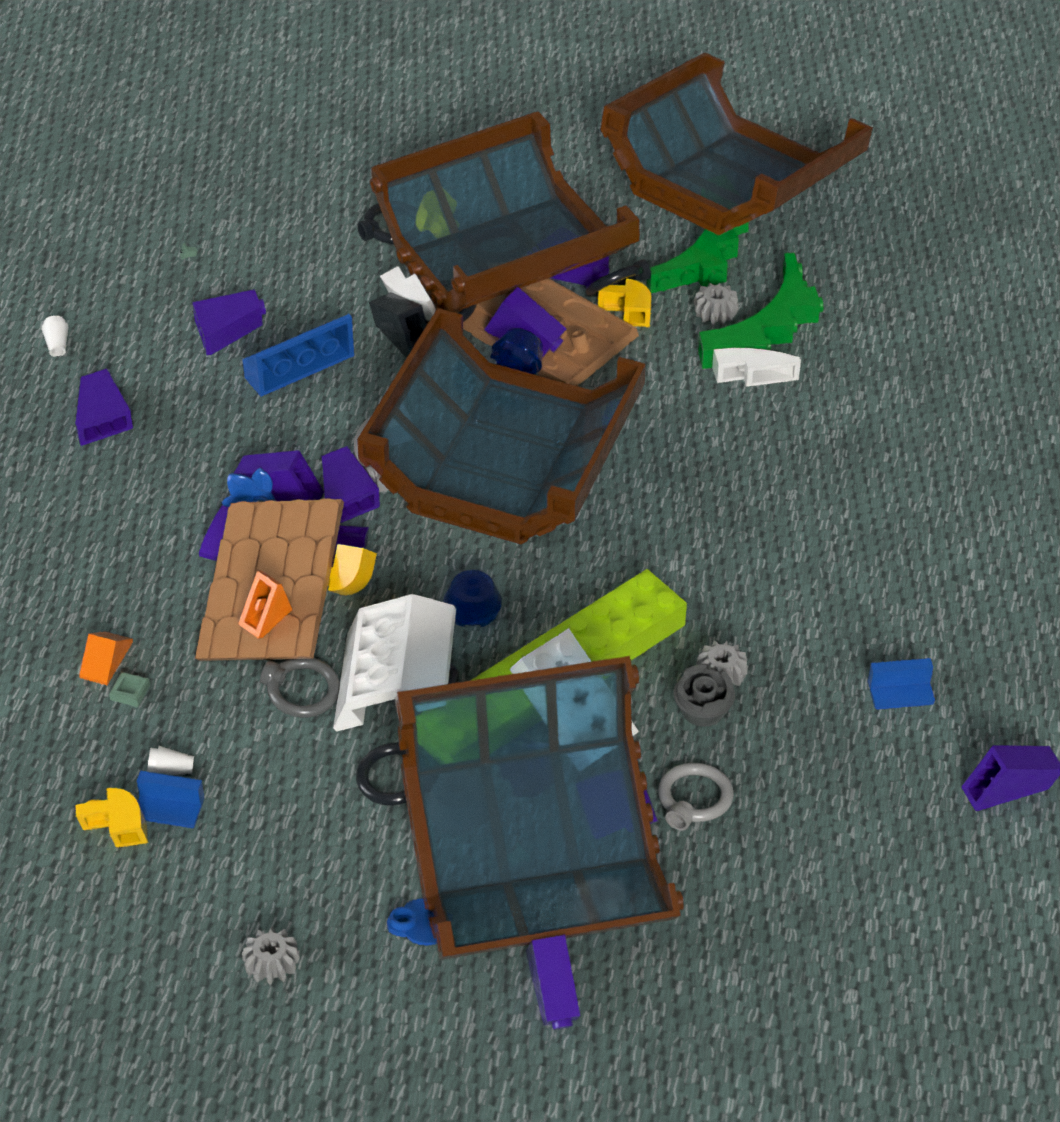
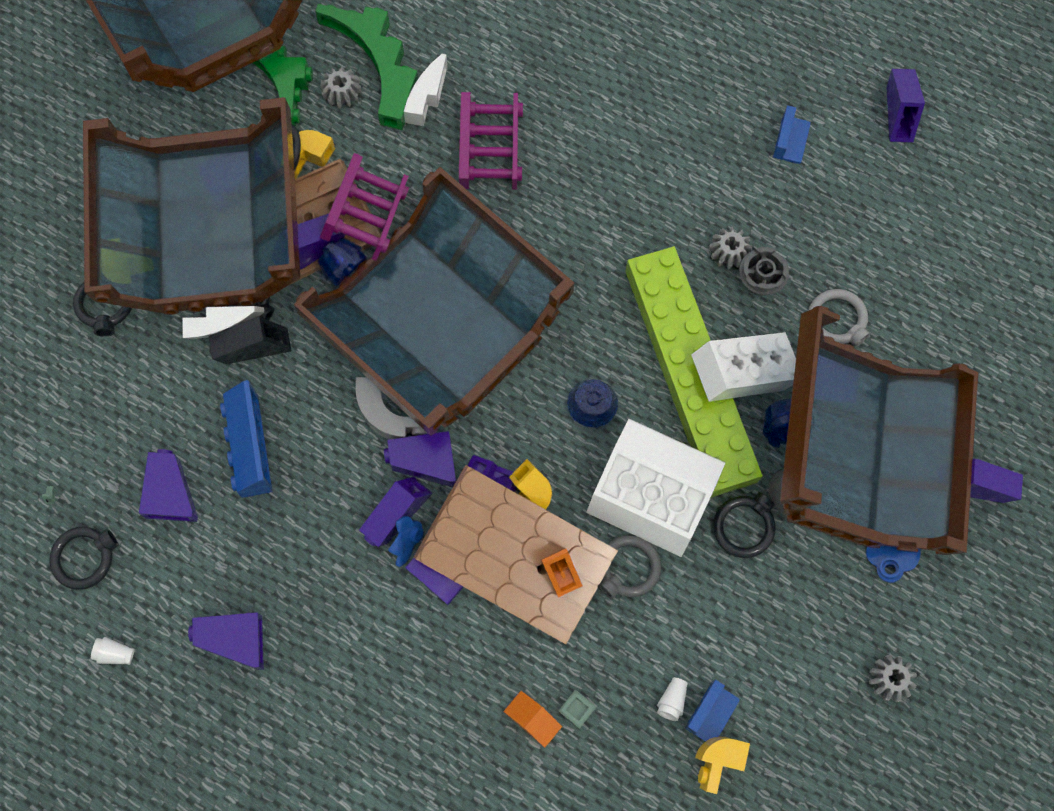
camera: 70 degrees left, 25 degrees up
(157, 298) = (105, 543): none -> black piece
(581, 324) = (350, 190): none -> magenta fence
(721, 410) = (469, 151): none -> magenta fence

